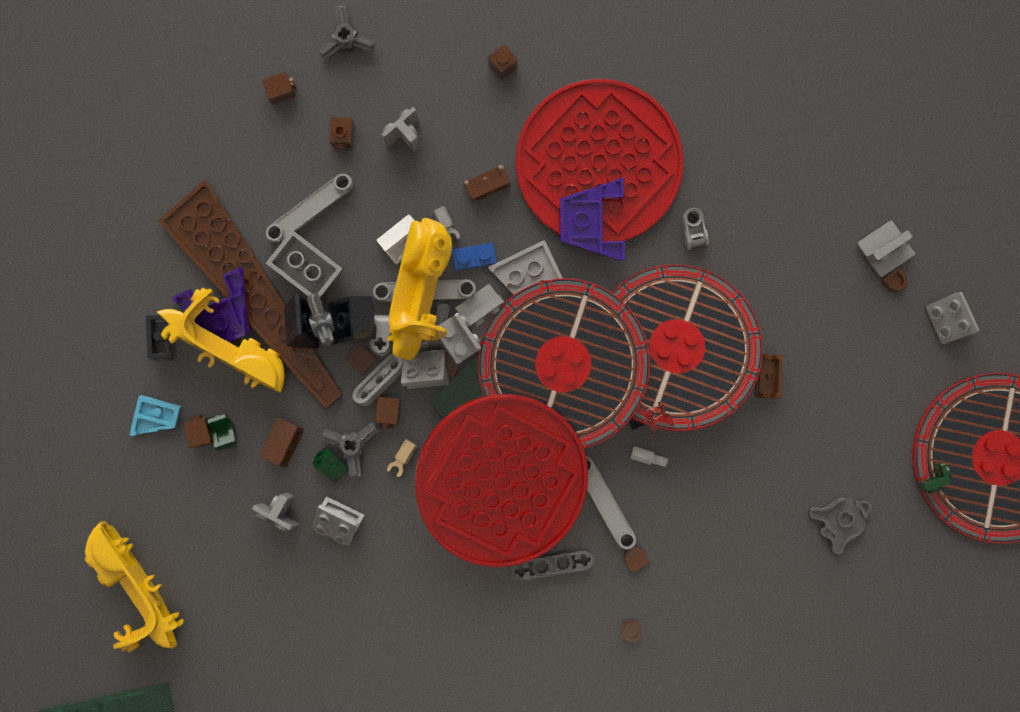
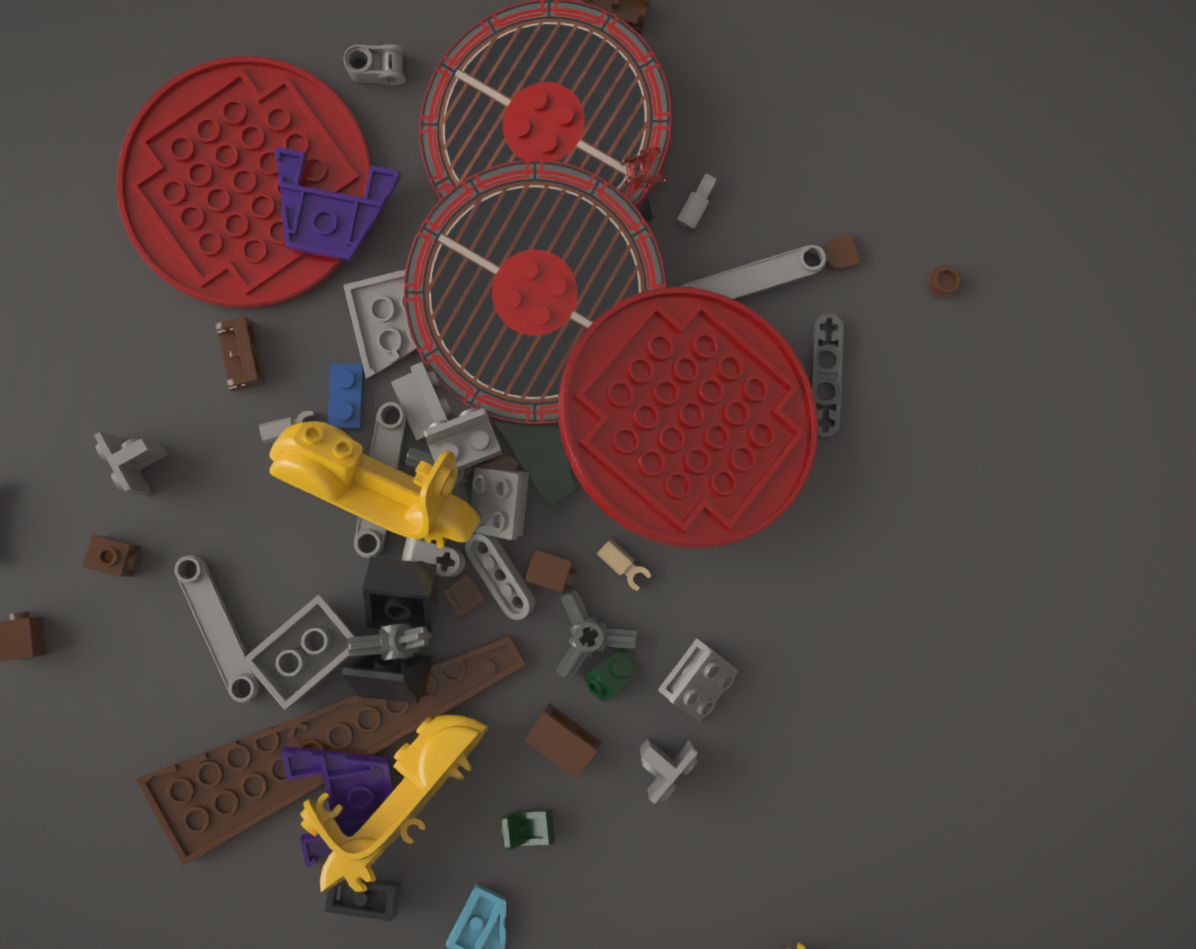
camera: 75 degrees left, 0 degrees up
(198, 431) = (520, 865): reddish brown brick -> none
(395, 239) = (294, 506): white panel -> none
(503, 61) = (60, 291): reddish brown brick -> none

